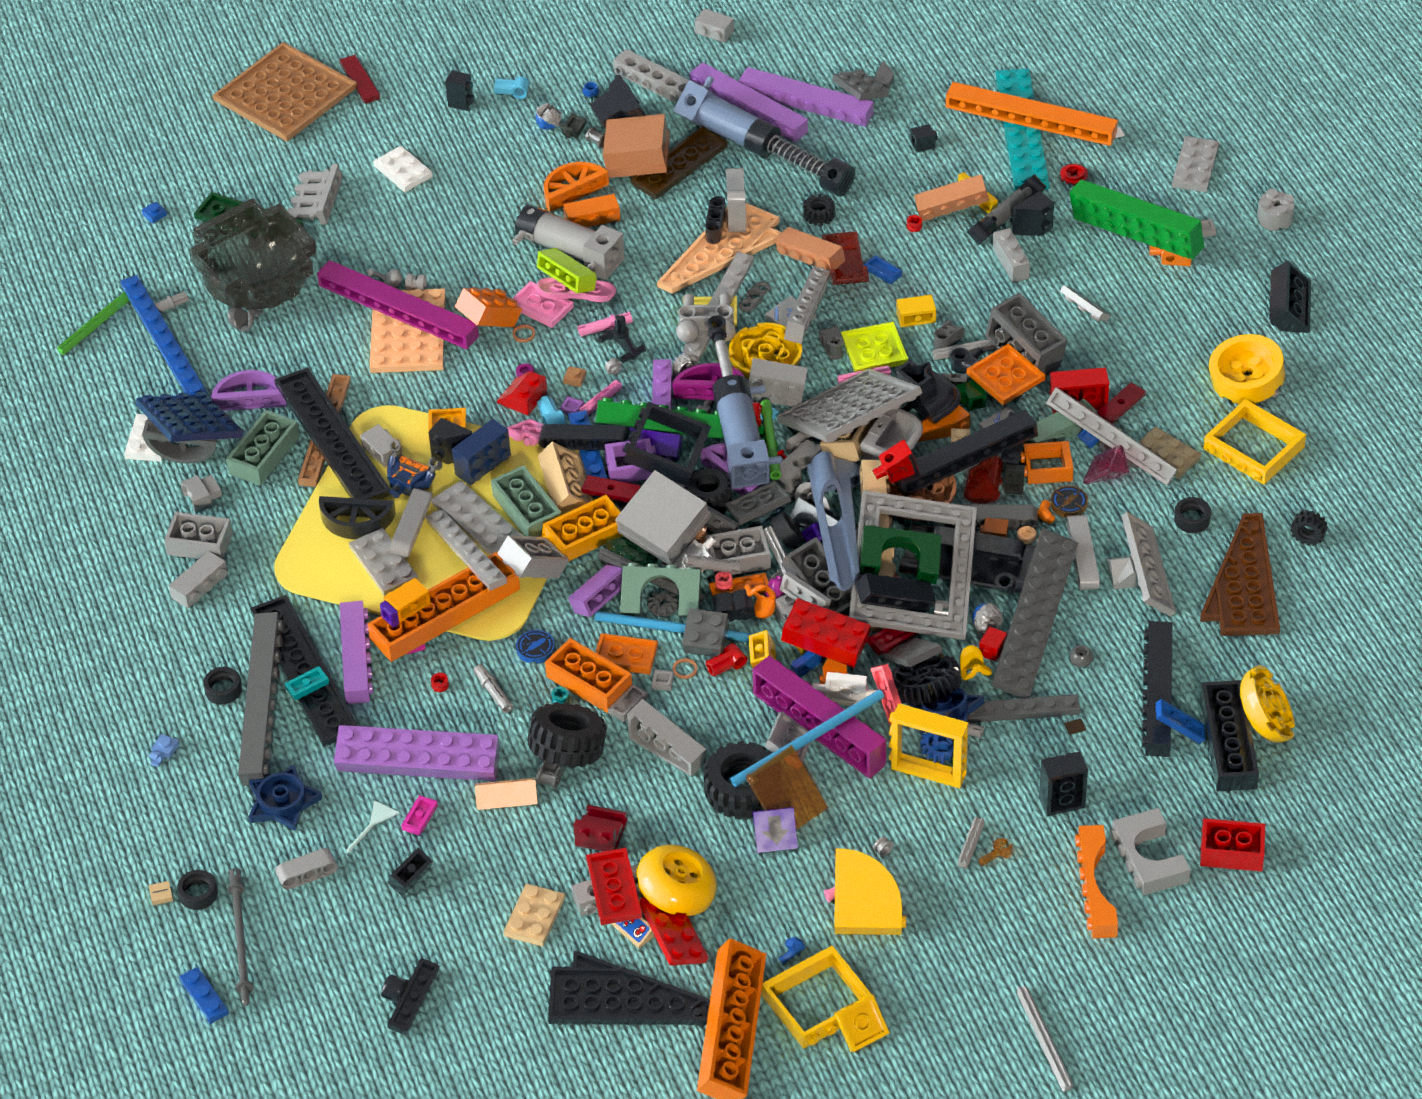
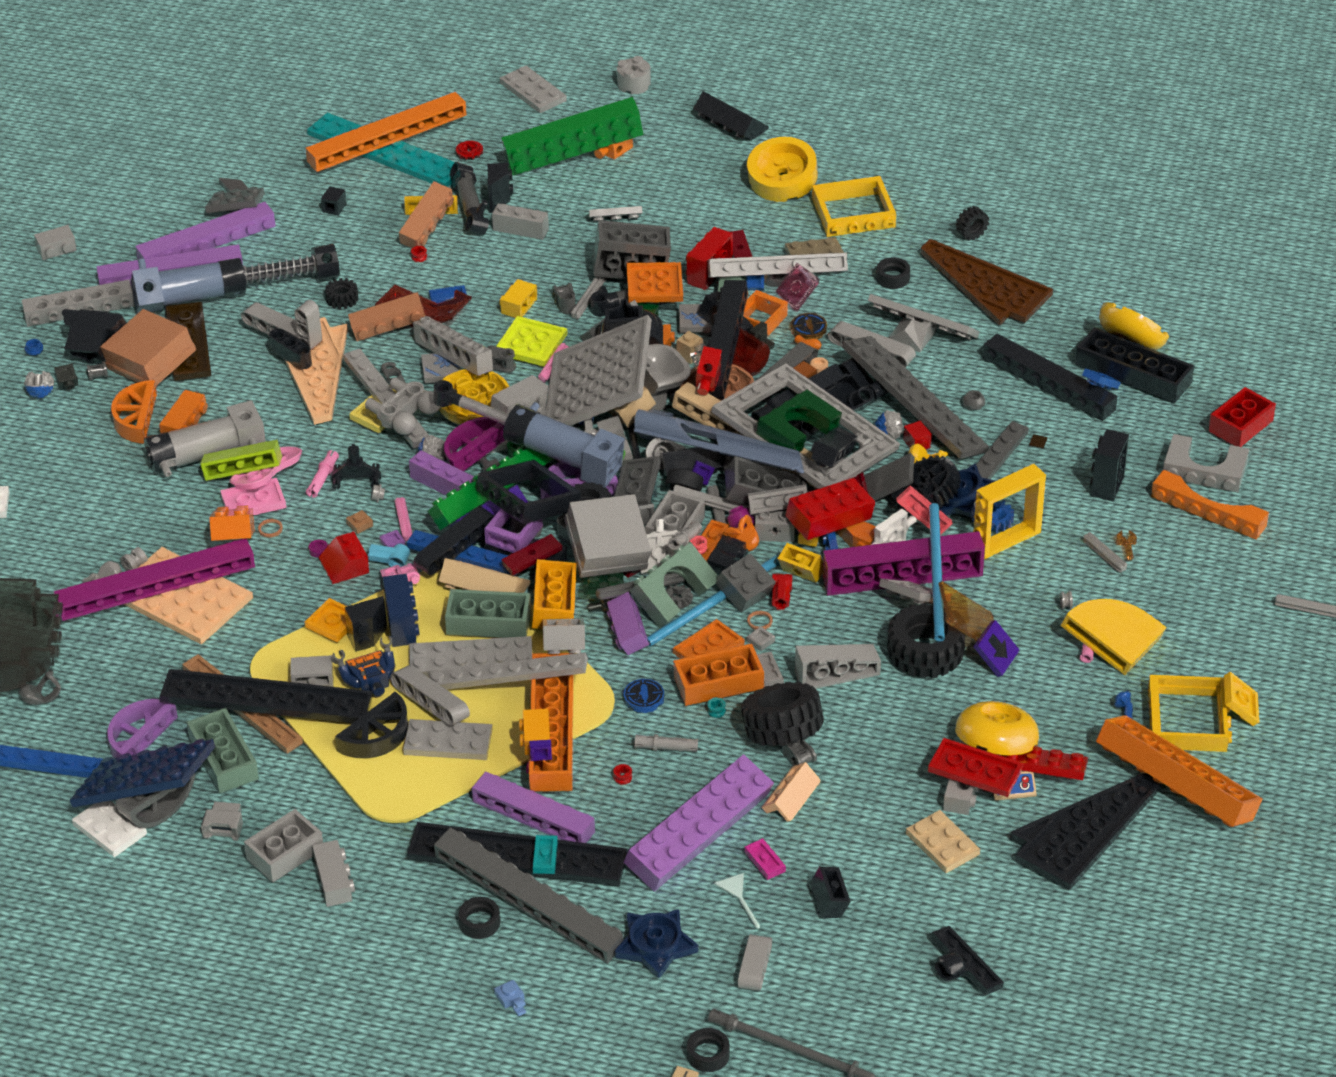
camera: 55 degrees left, 5 degrees down
(600, 828) = (893, 753): dark red piece -> none

